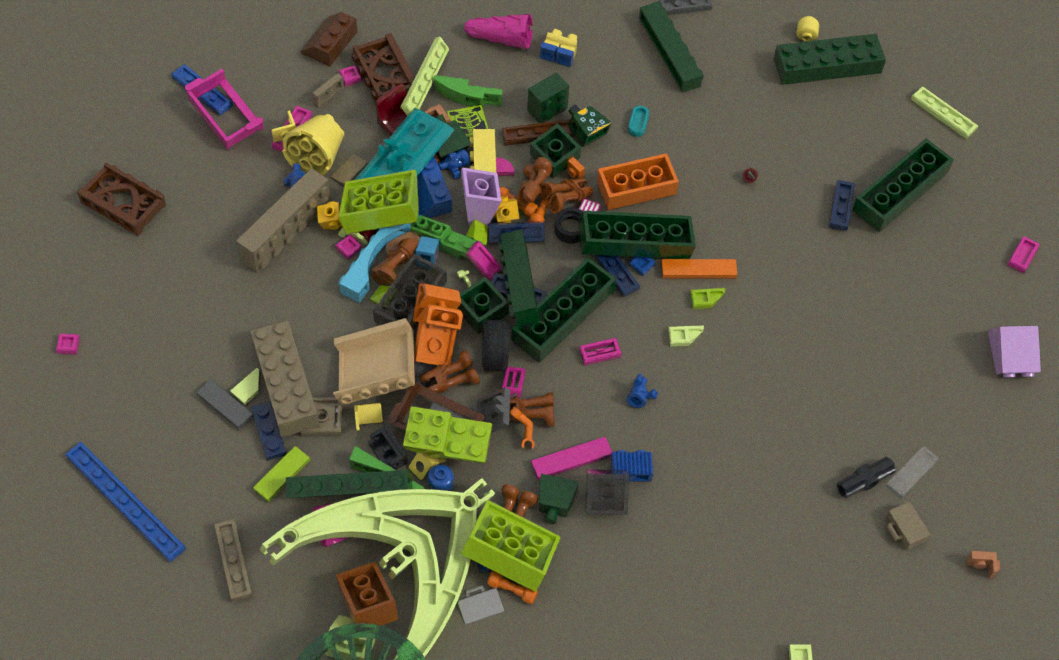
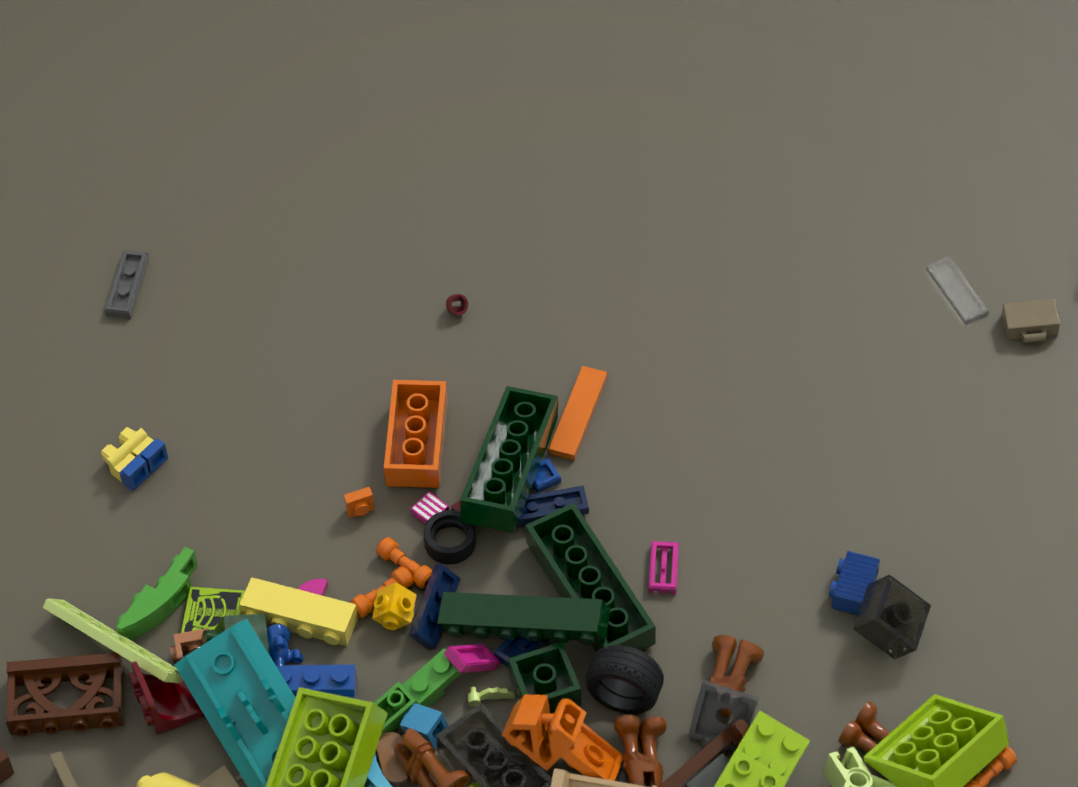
camera: 65 degrees left, 5 degrees down
(350, 75) = (46, 745): dark pink tile -> none
(478, 231) = (418, 652): lime slope -> none
(480, 194) = (373, 624): lavender slope -> none
(509, 29) = (76, 508): dark pink cone -> none
(512, 389) = (683, 687): dark pink tile -> none
(528, 426) = (762, 683): orange arm -> none
(530, 132) = (268, 531): reddish brown tile -> none
(536, 175) = (372, 568): dark orange piece -> none
(548, 98) = (229, 494): dark green brick -> none
(556, 147) = (320, 514): dark green brick -> none
(556, 496) = (872, 680): dark green torso -> none
(571, 190) = (394, 516): dark orange piece -> none
(572, 458) = (816, 650): dark pink tile -> none
(588, 124) = (291, 462): dark green torso -> none
(638, 121) = (305, 404): teal tile -> none
(639, 393) = (748, 539): blue piece -> none
(671, 47) = (197, 323): dark green brick -> none
(683, 335) = (674, 464): yellowish green tile -> none
(706, 297) = (626, 421): lime tile -> none
(807, 28) = (244, 159): light yellow head -> none
(829, 59) = (307, 153): dark green brick -> none
(842, 205) = (545, 222): dark blue plate -> none
(866, 477) = (952, 337): black piece -> none
(902, 185) = (547, 146): dark green brick -> none
(944, 112) = (445, 66): yellowish green tile -> none
(1015, 350) = (831, 124): lavender slope -> none
(1023, 254) = (693, 68): dark pink tile -> none

